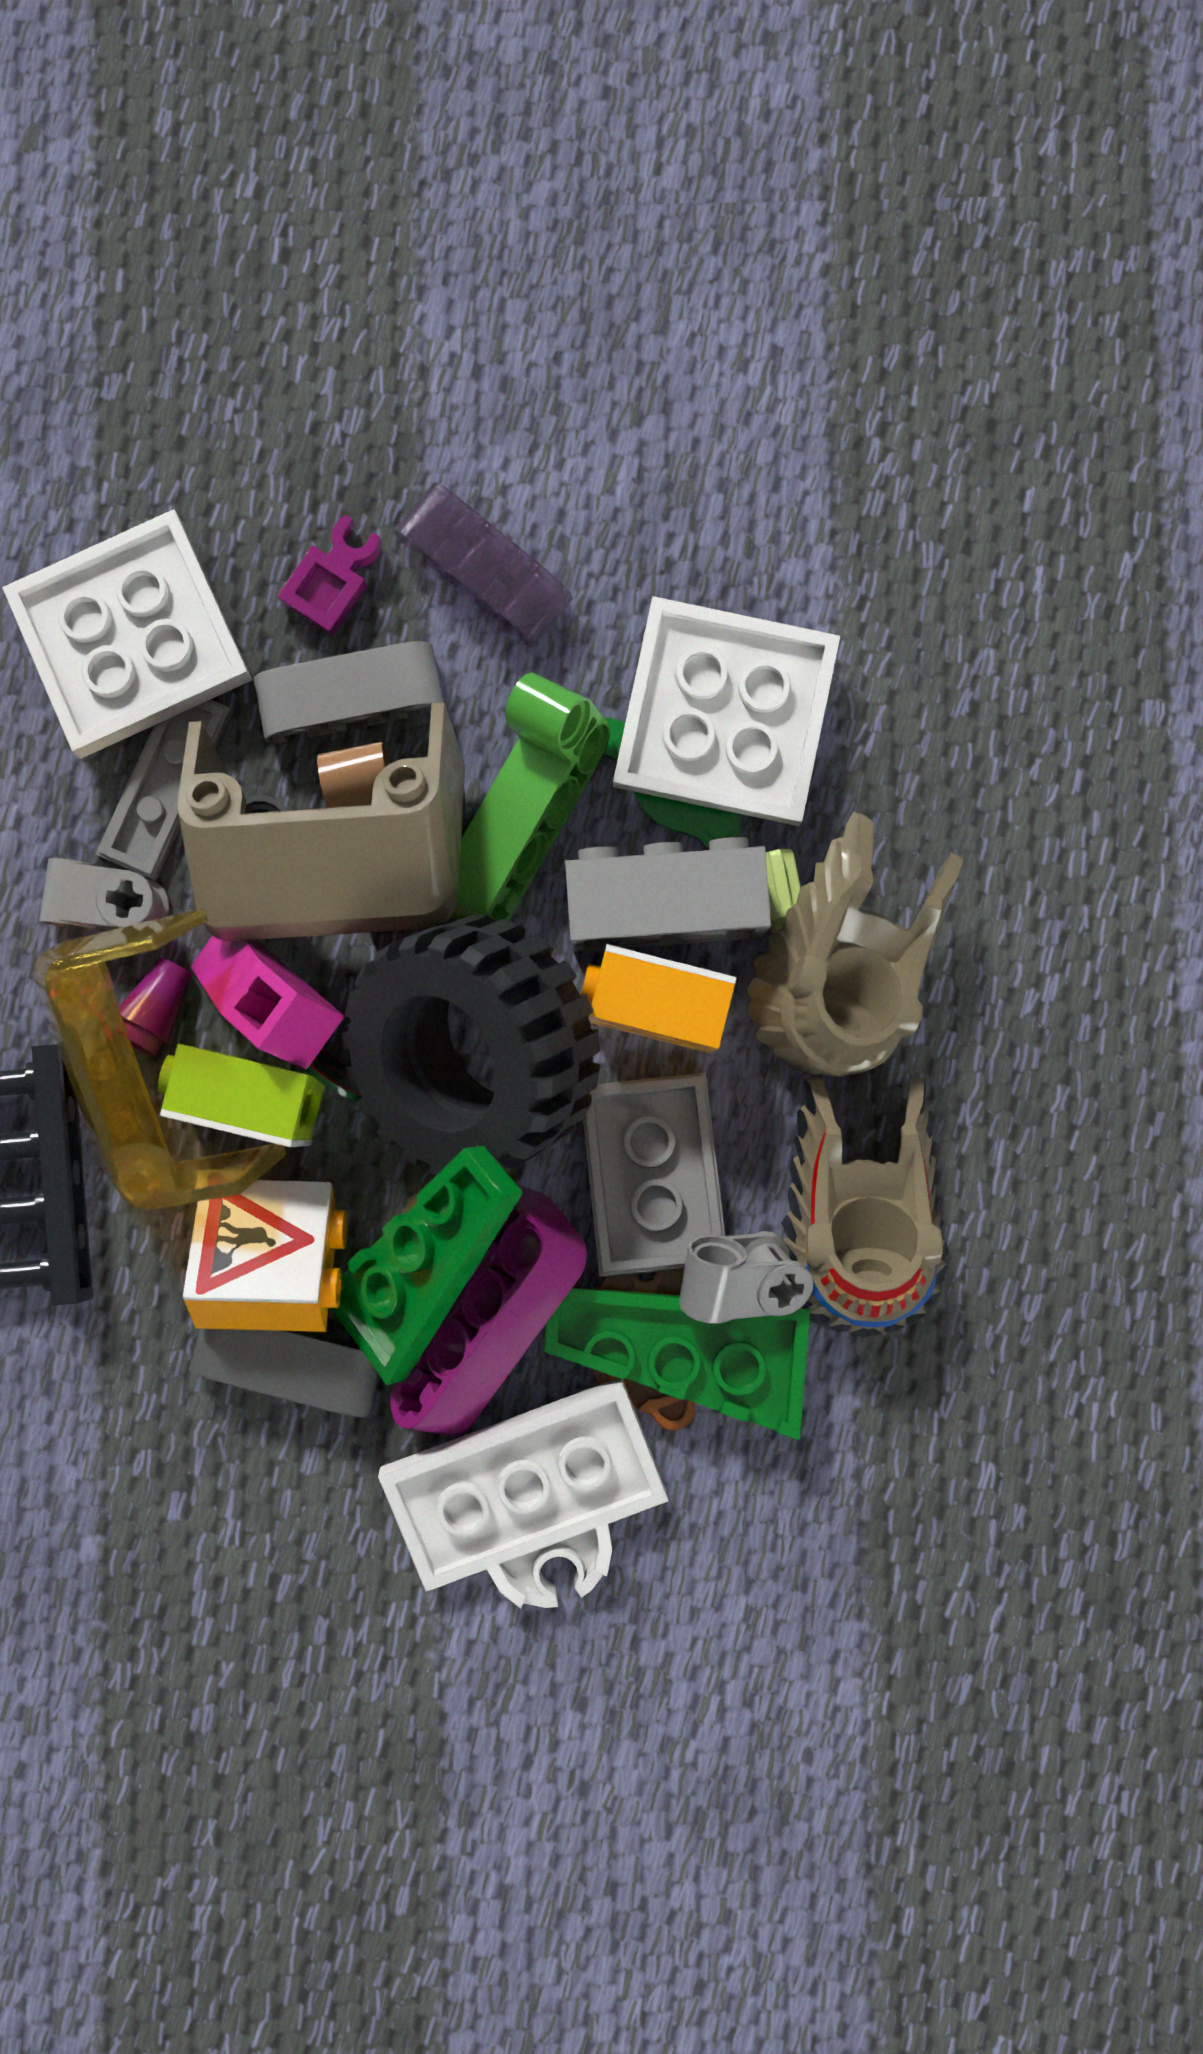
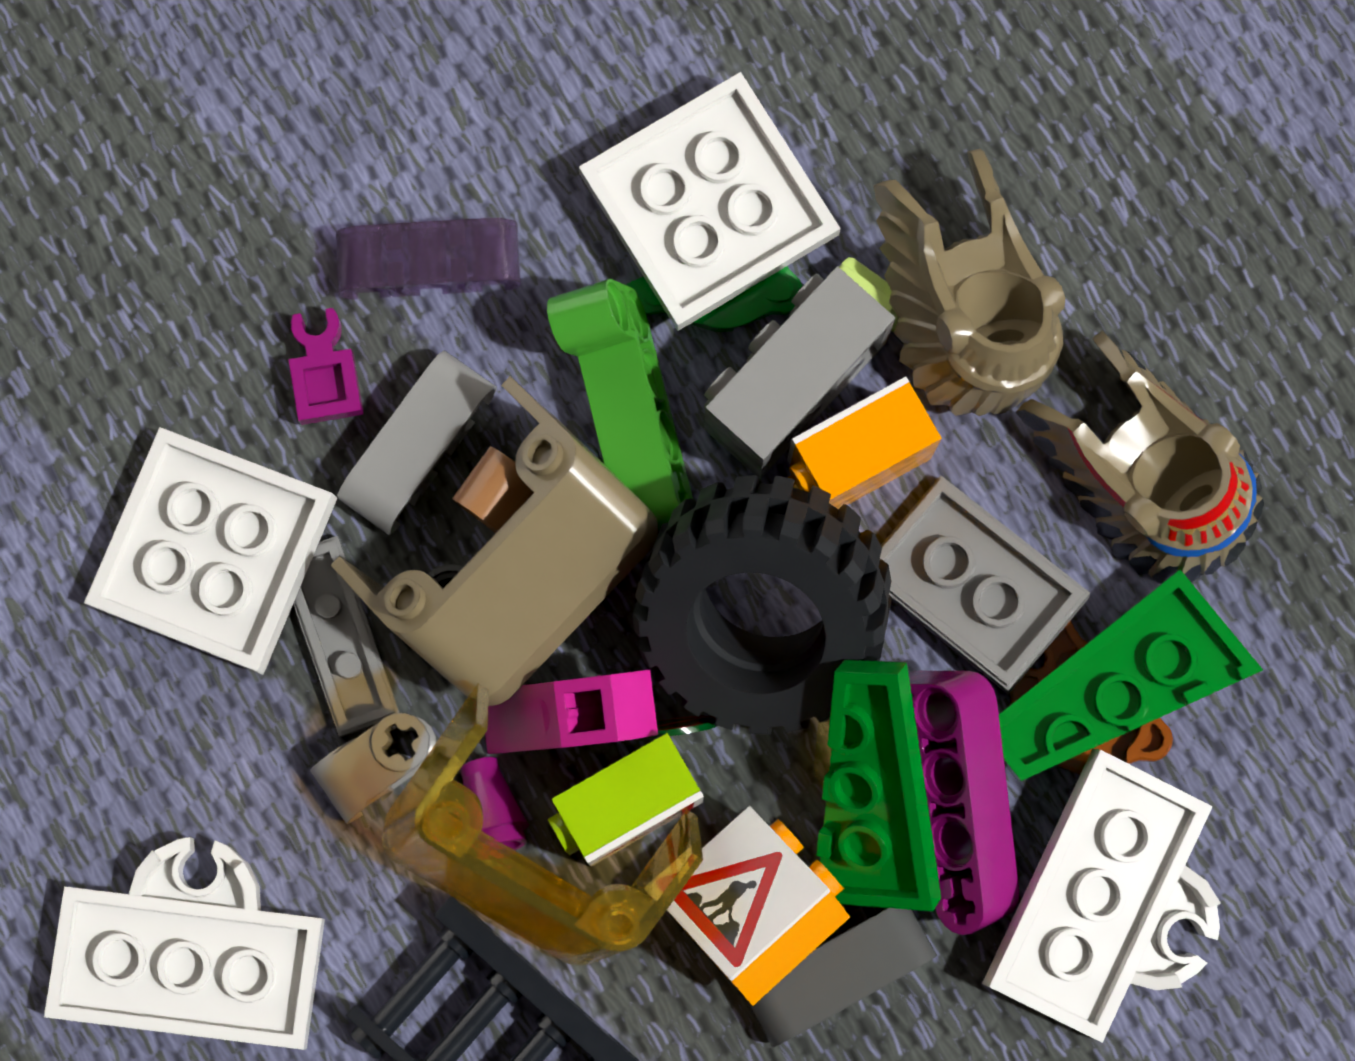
camera: 50 degrees left, 5 degrees down
(742, 1278) = (1112, 591): light grey piece -> none

